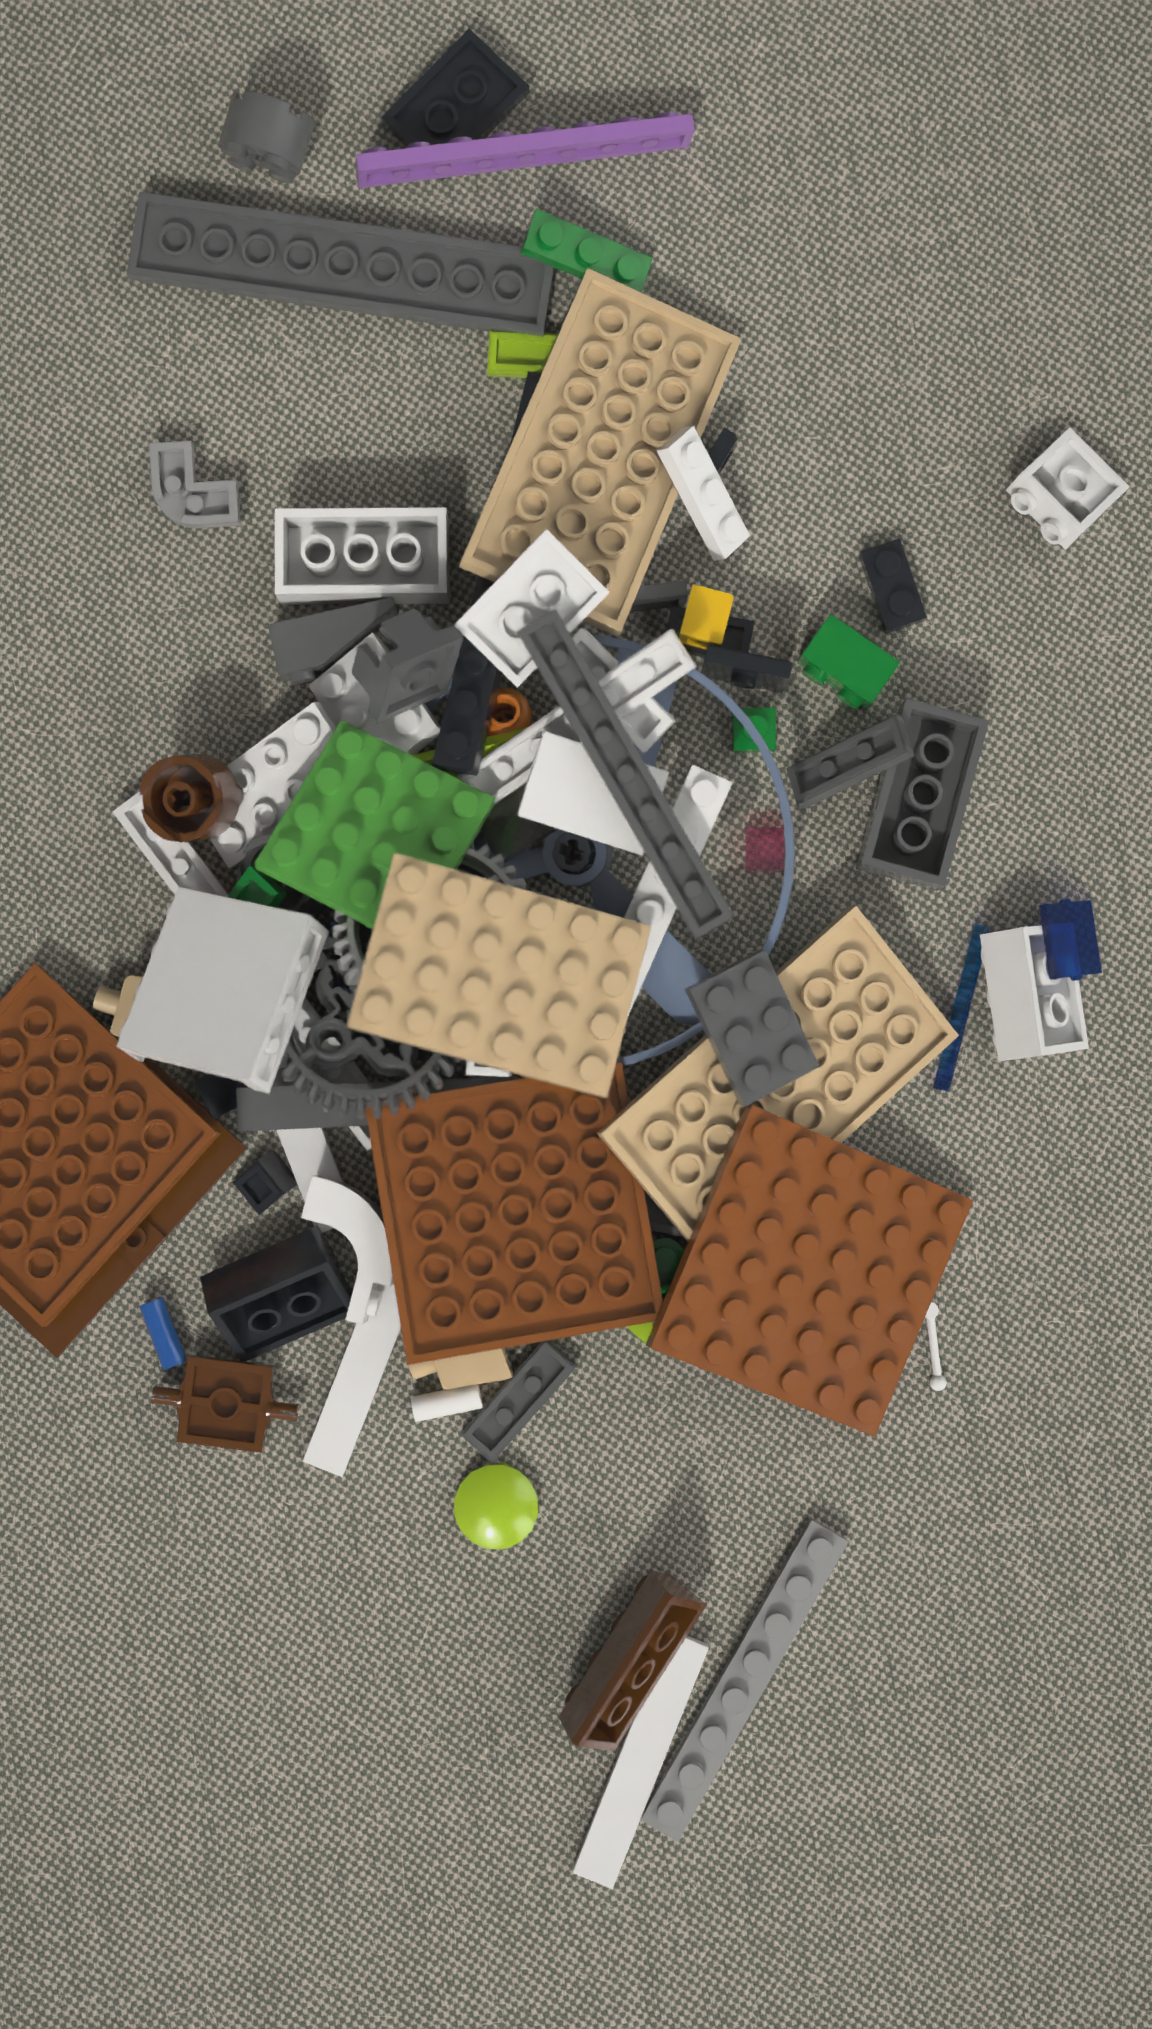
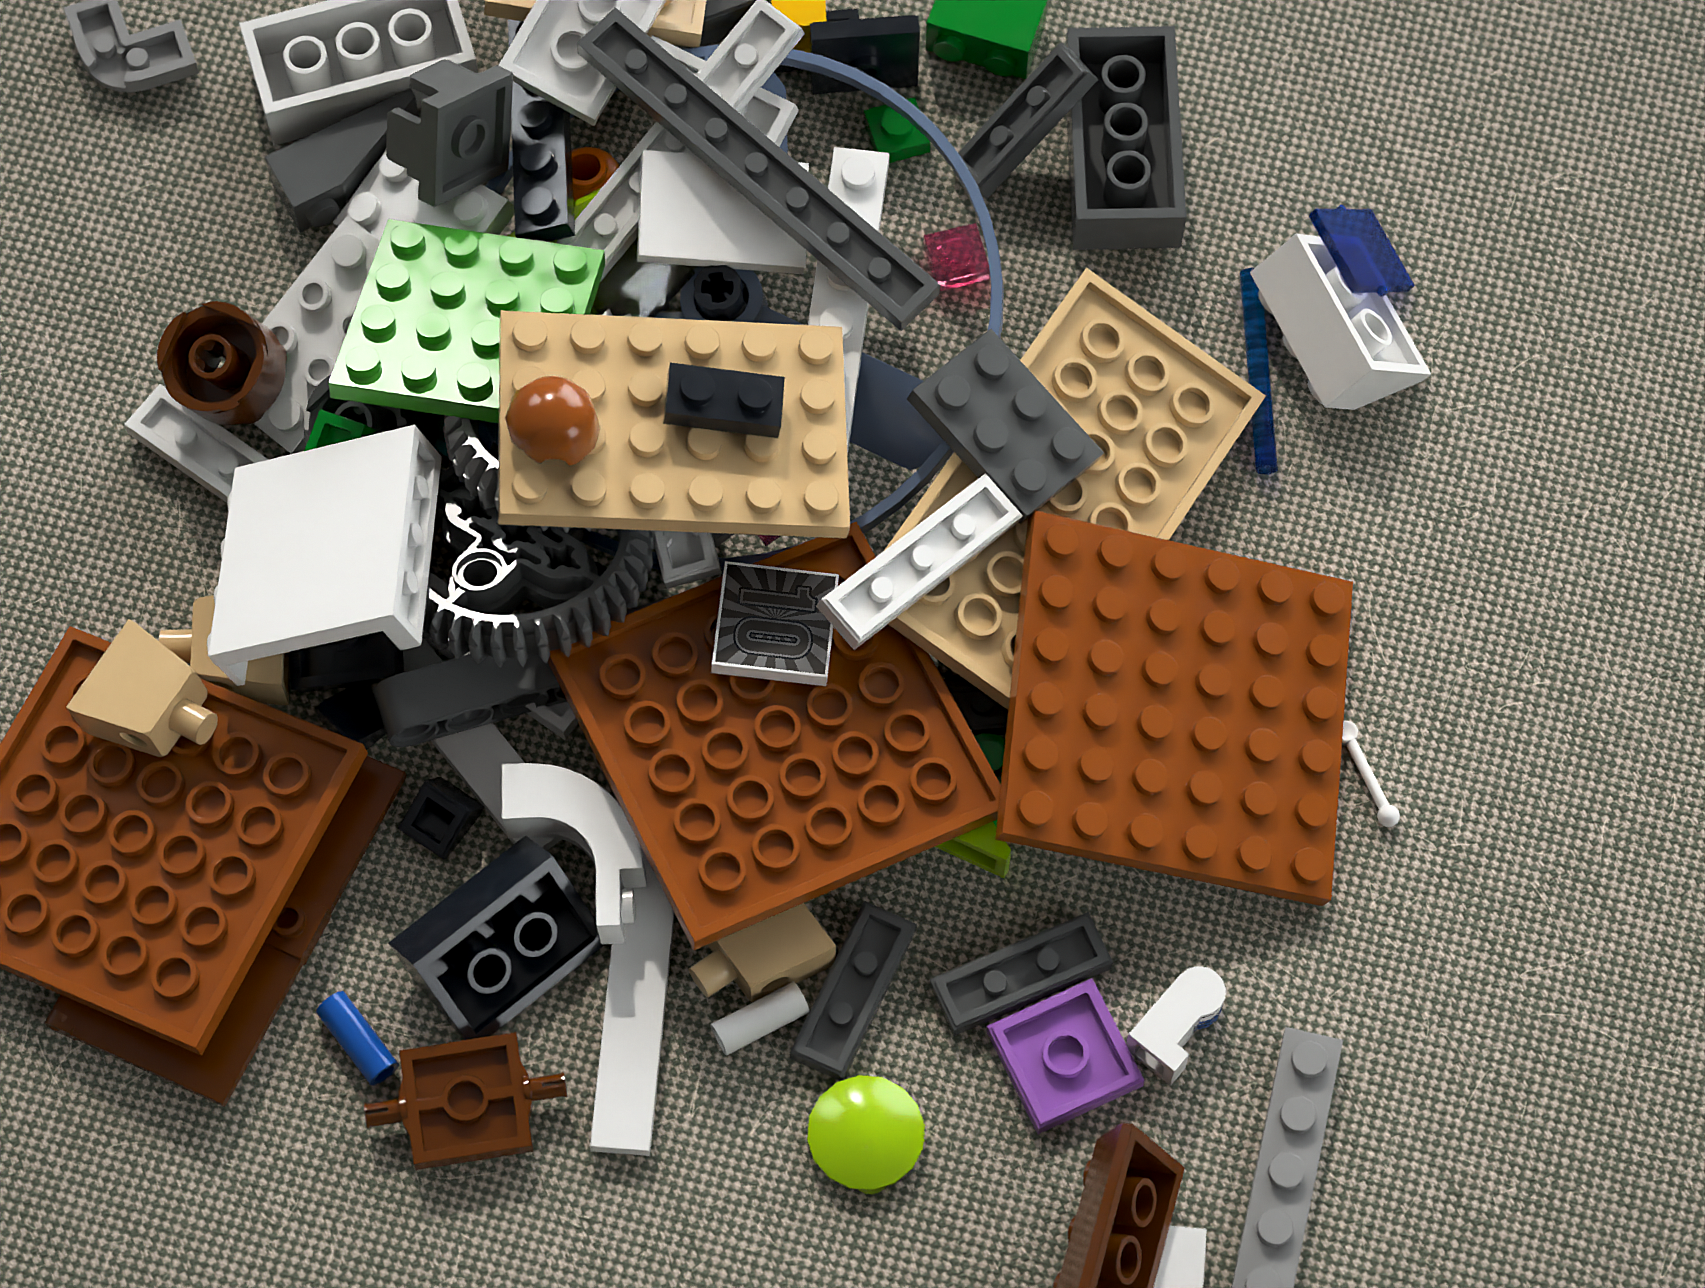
camera: 20 degrees left, 20 degrees down
(70, 1047) = (143, 696): none -> tan torso
(404, 967) = (553, 420): none -> dark orange hair
(536, 1133) = (772, 624): none -> tile
(540, 976) = (724, 400): none -> black plate
(639, 1422) = (1020, 974): none -> dark grey tile
(651, 1491) = (1065, 1056): none -> medium lavender tile
(654, 1124) = (919, 561): none -> white tile
(736, 1491) = (1187, 1005): none -> white leg

